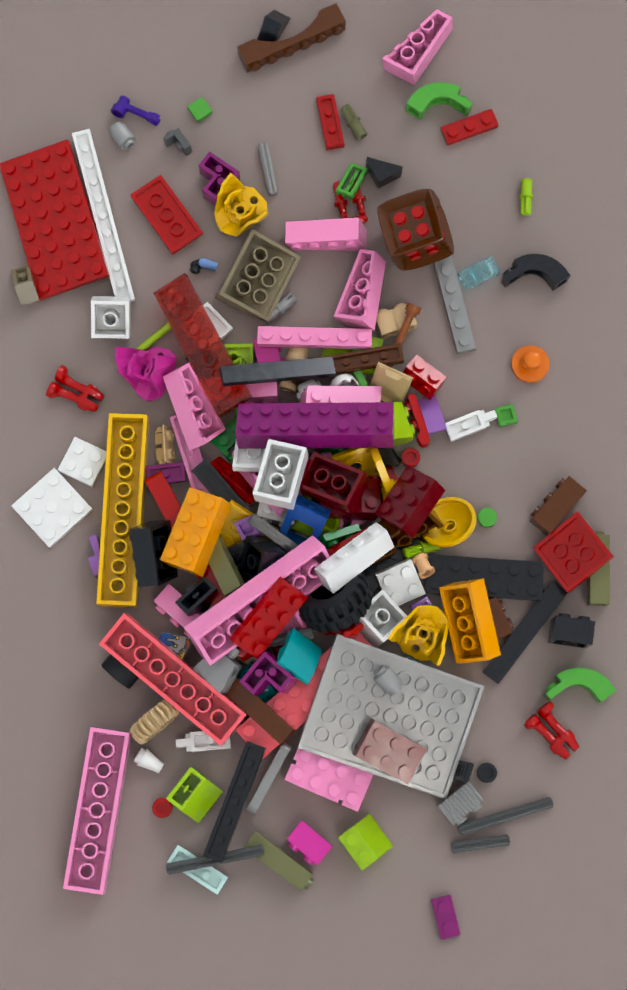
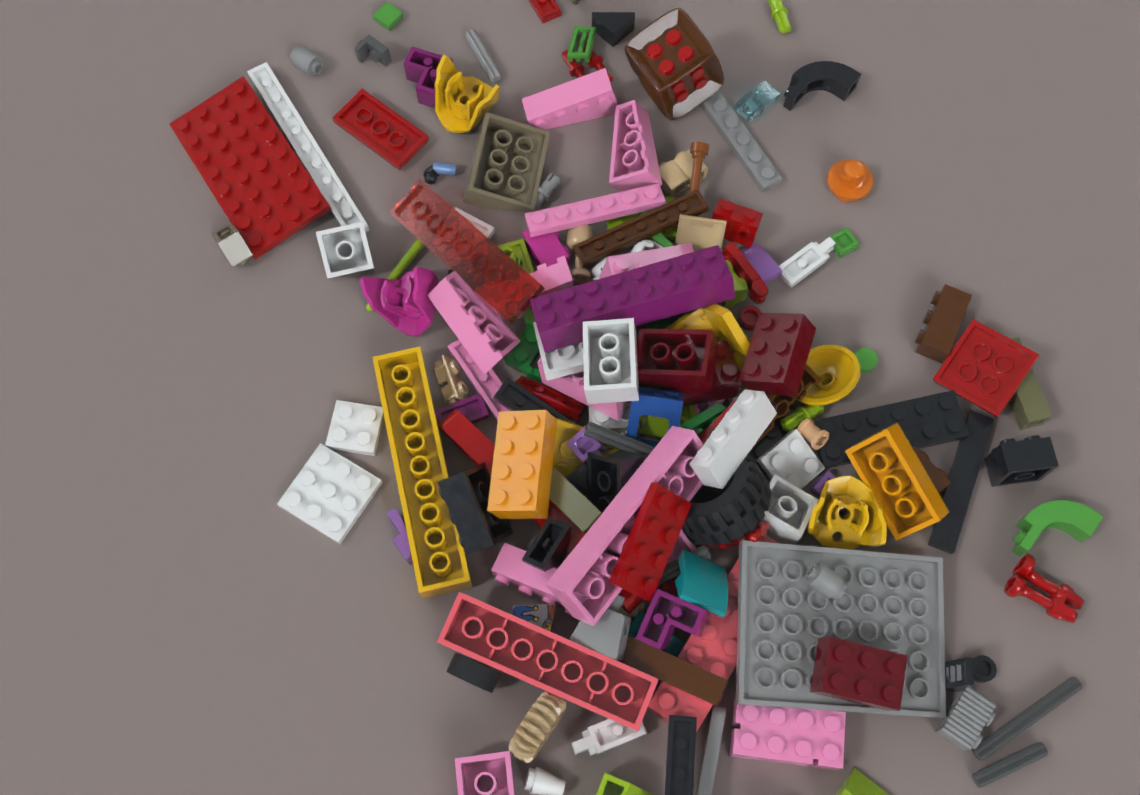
camera: 15 degrees left, 10 degrees down
(62, 377) = (338, 358): red piece -> none
(122, 106) = (299, 33): dark purple brick -> none
(277, 371) = (564, 252): black tile -> none

